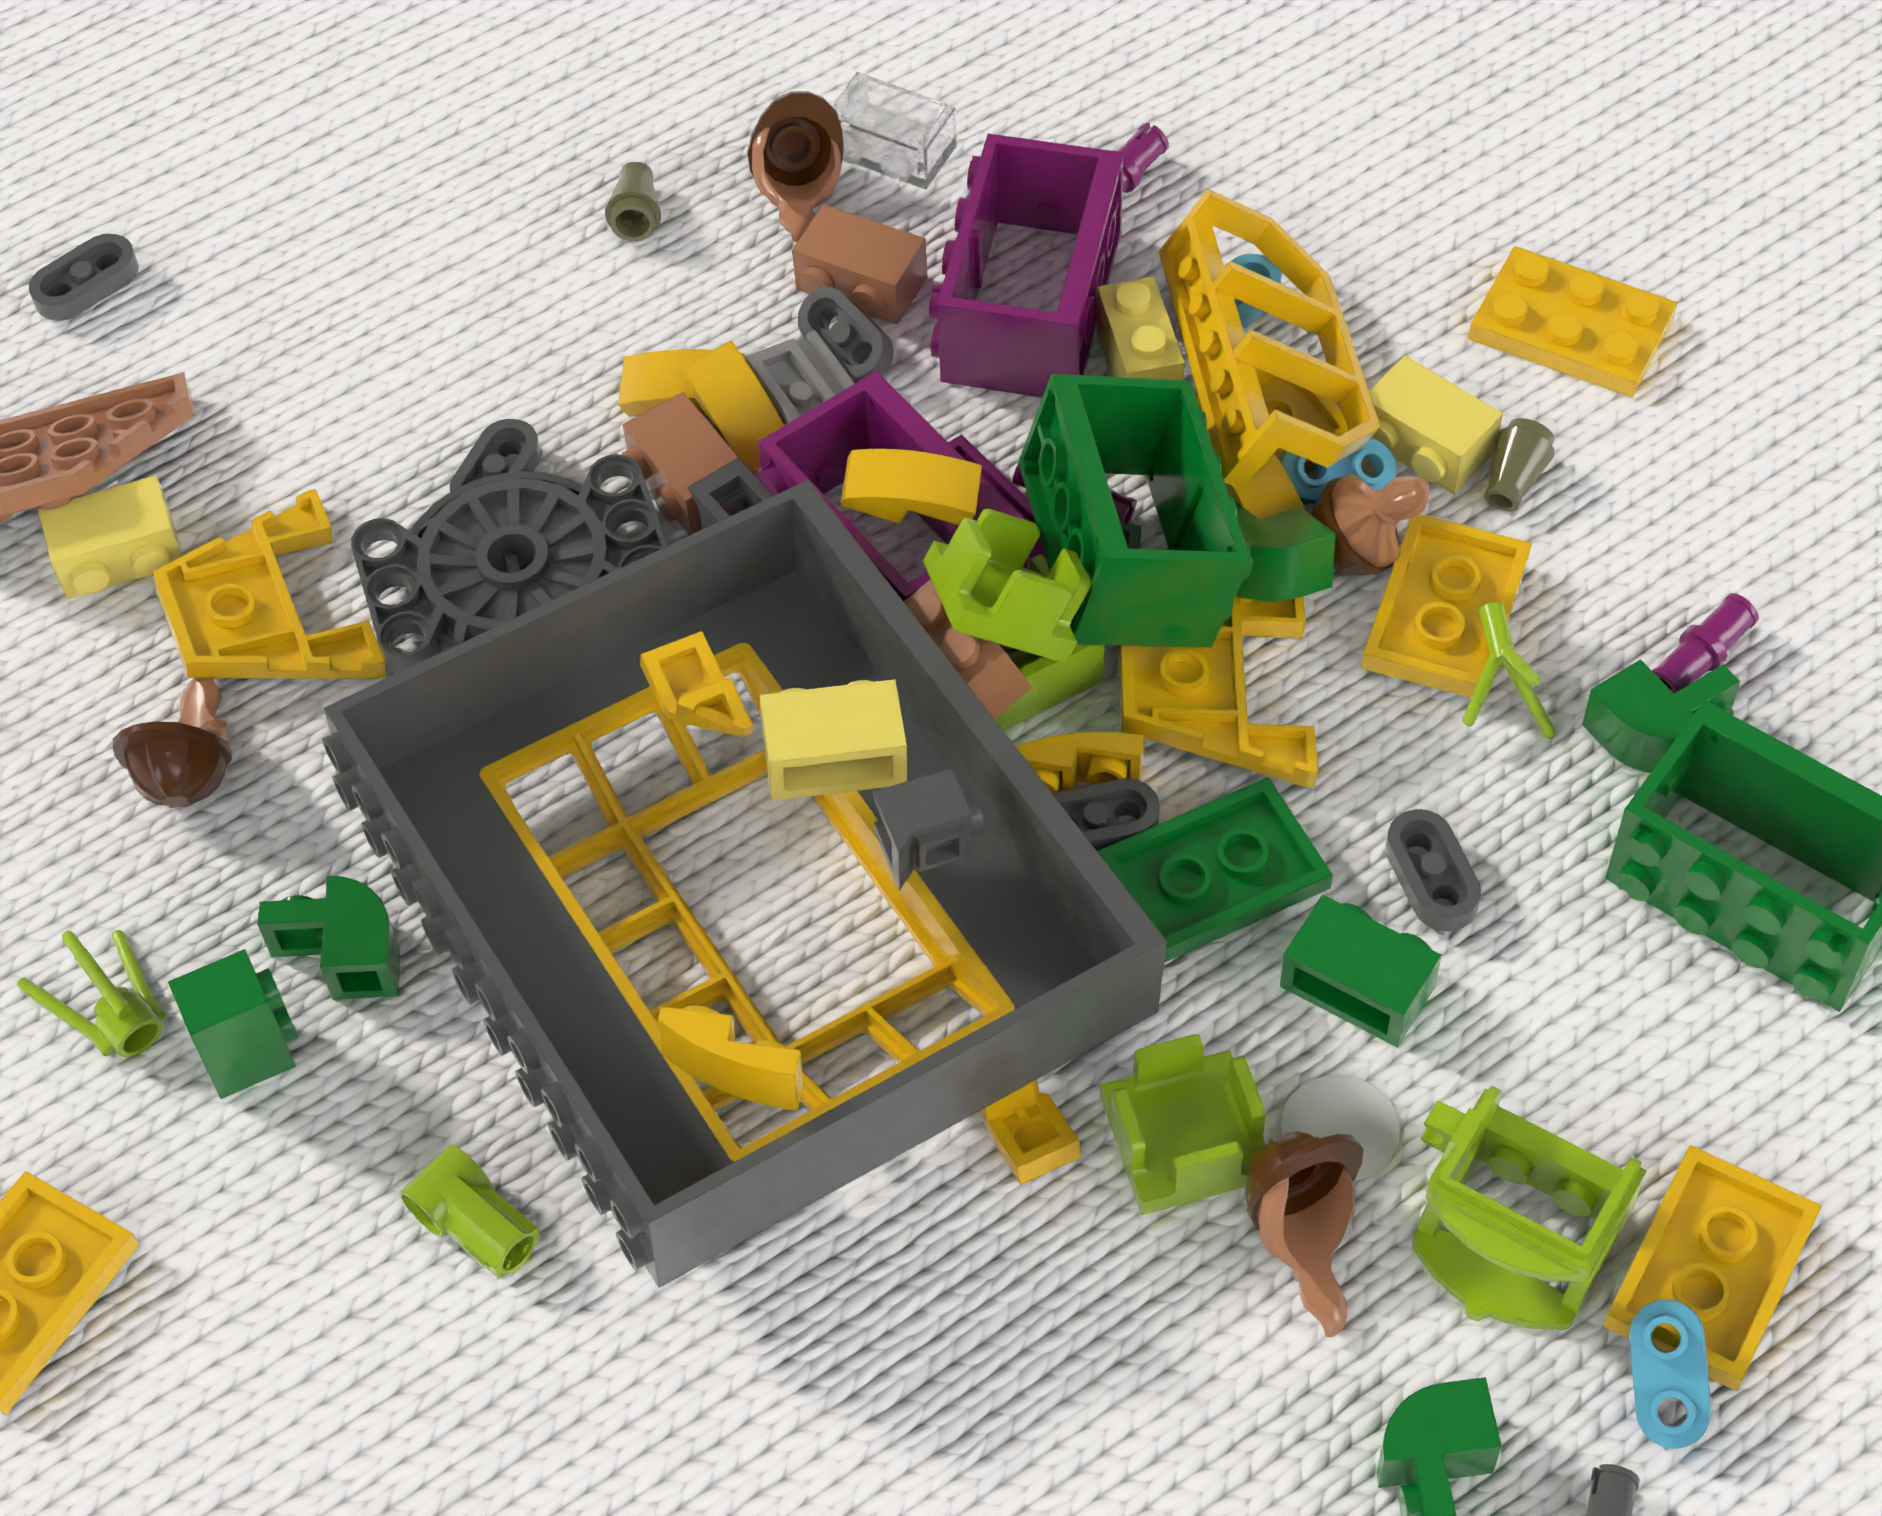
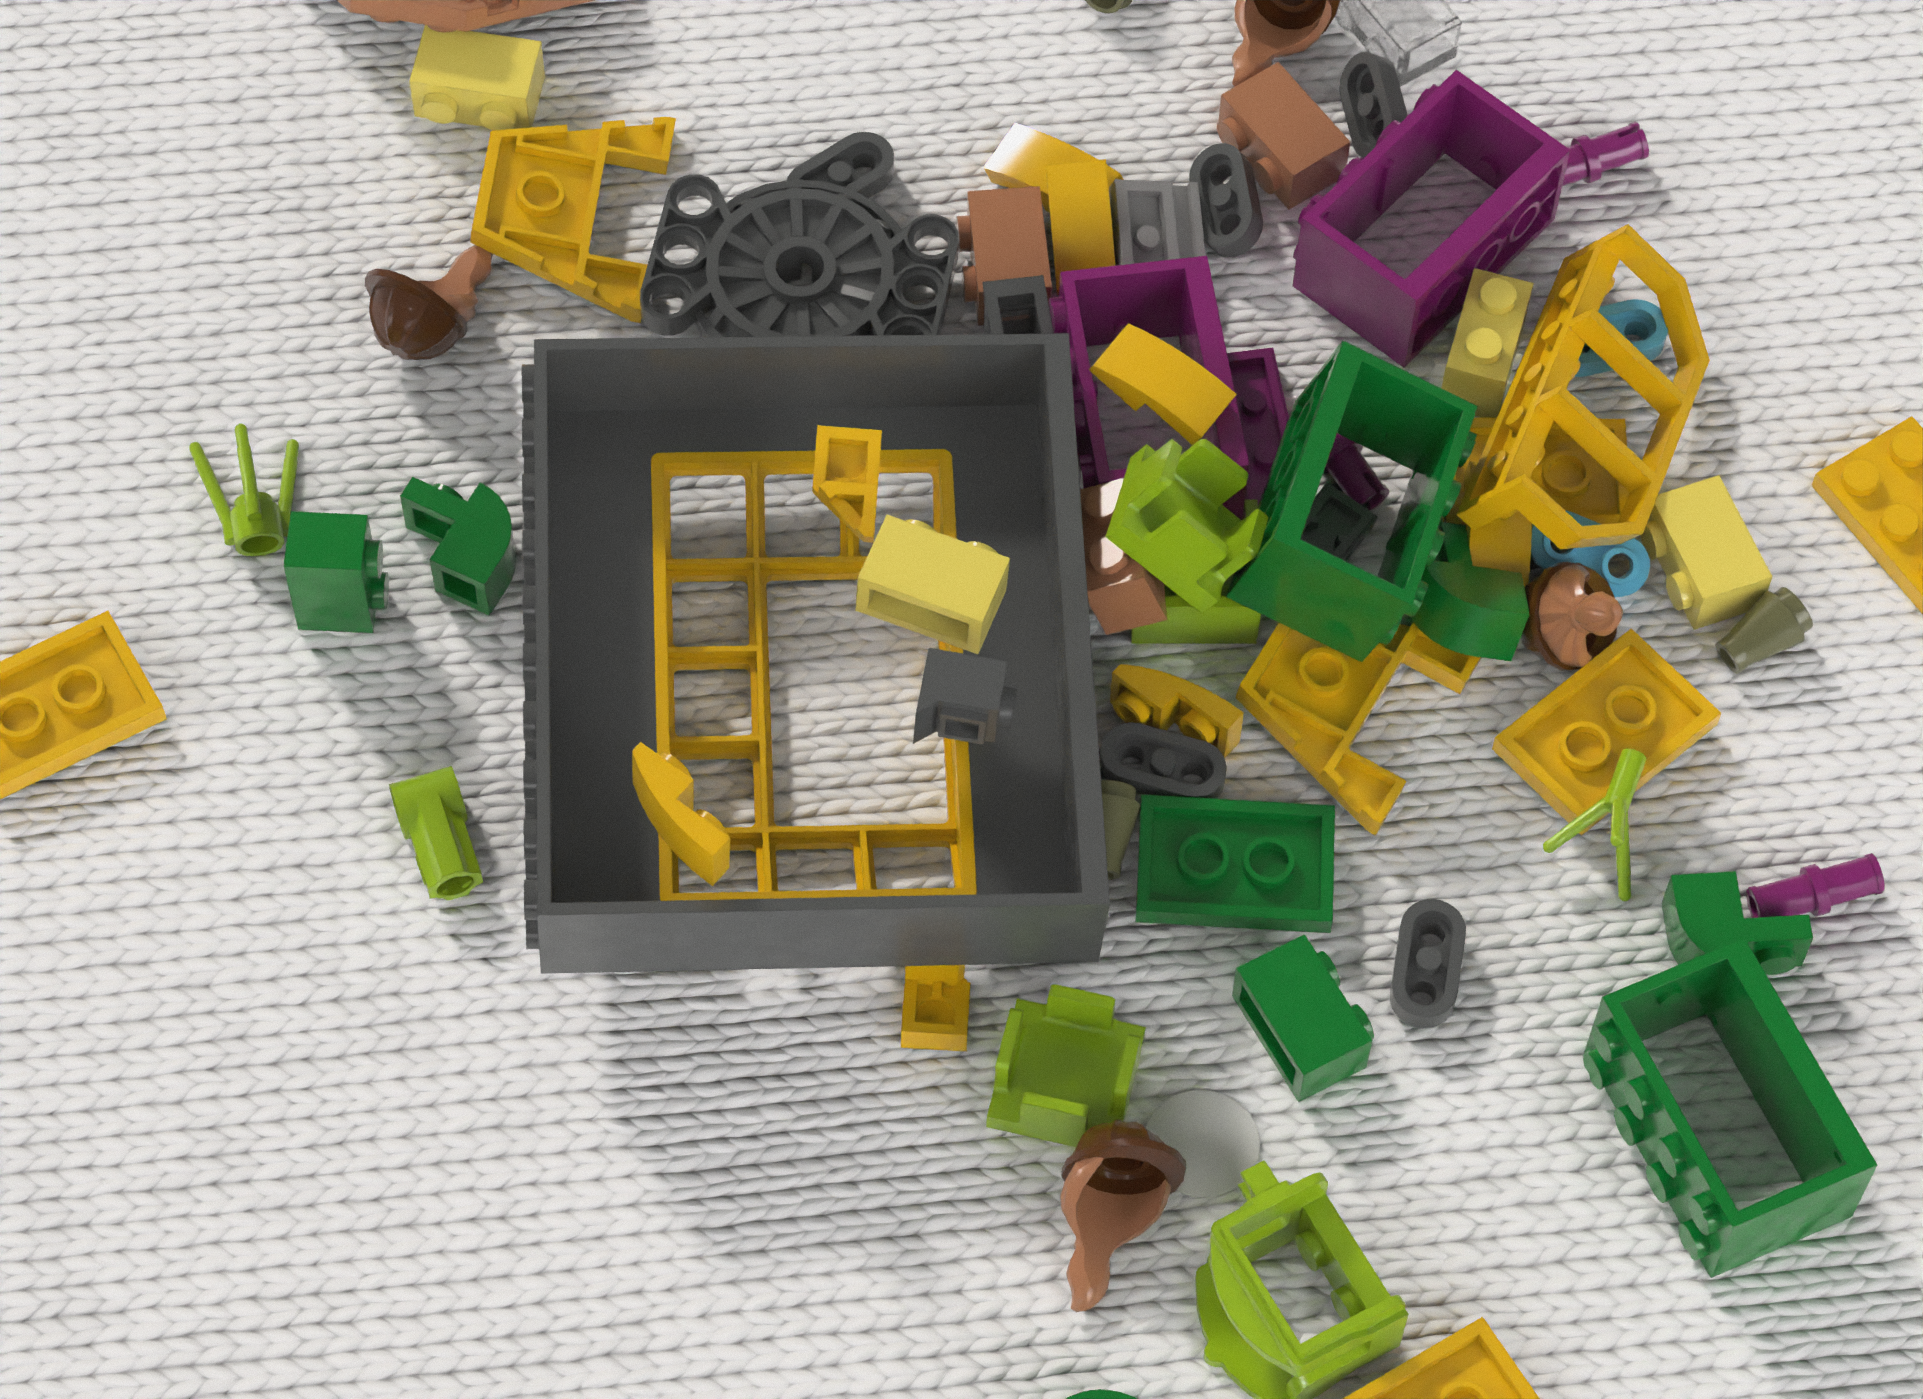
camera: 25 degrees right, 5 degrees up
(926, 213) = (1370, 99): none -> dark grey plate

